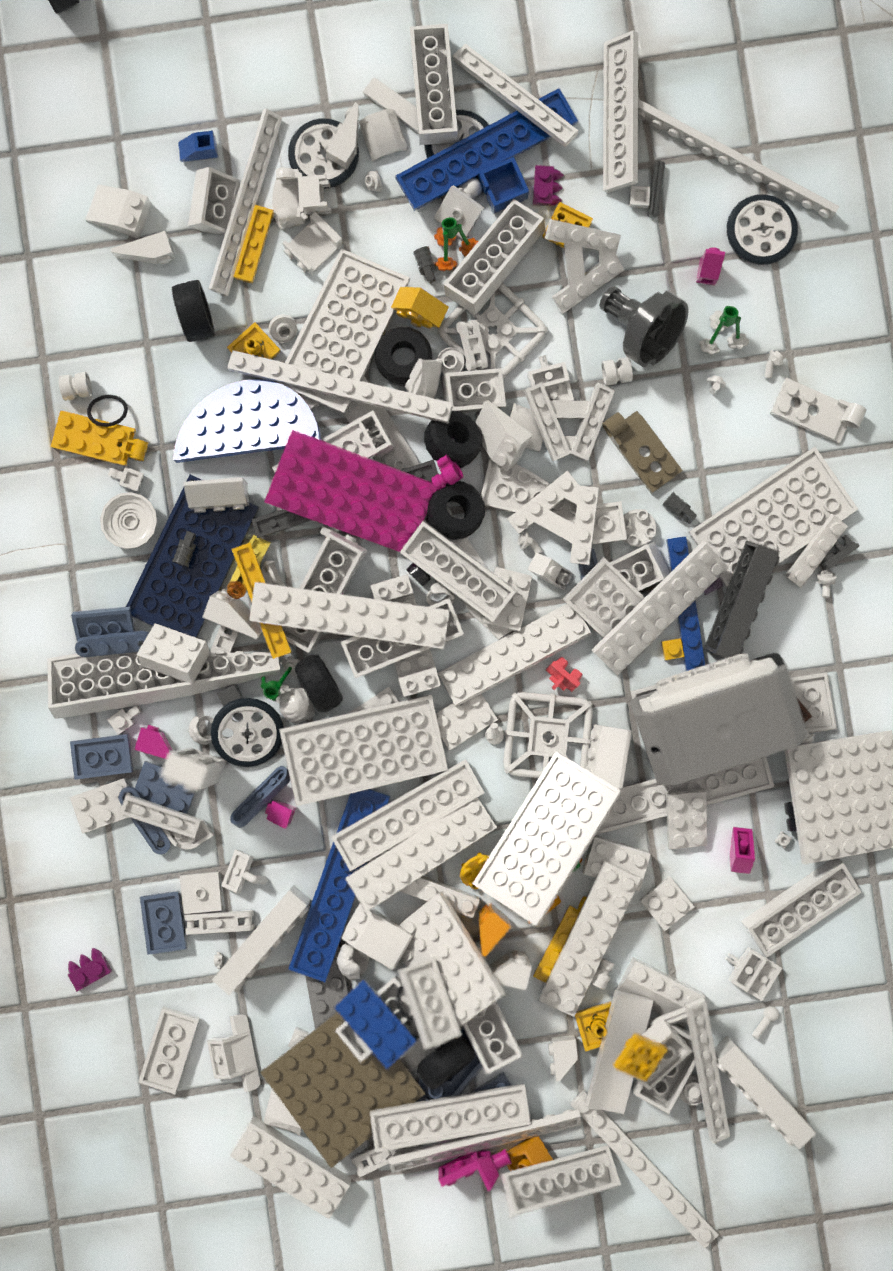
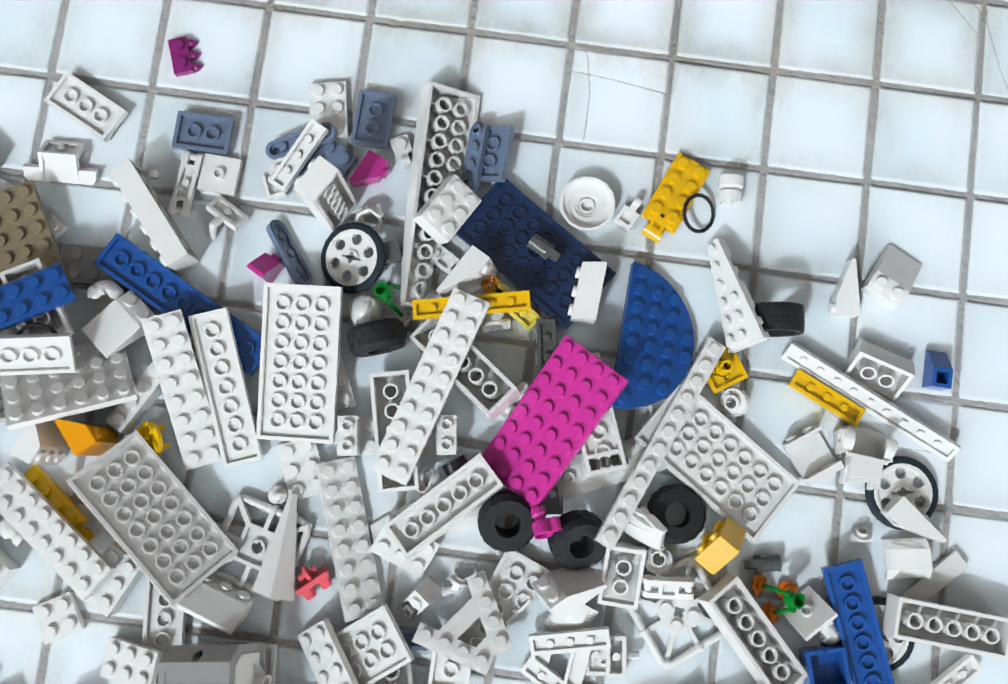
camera: 105 degrees right, 5 degrees down
(188, 351) = (736, 305): none -> white wing
(564, 708) = (277, 571): none -> white wedge

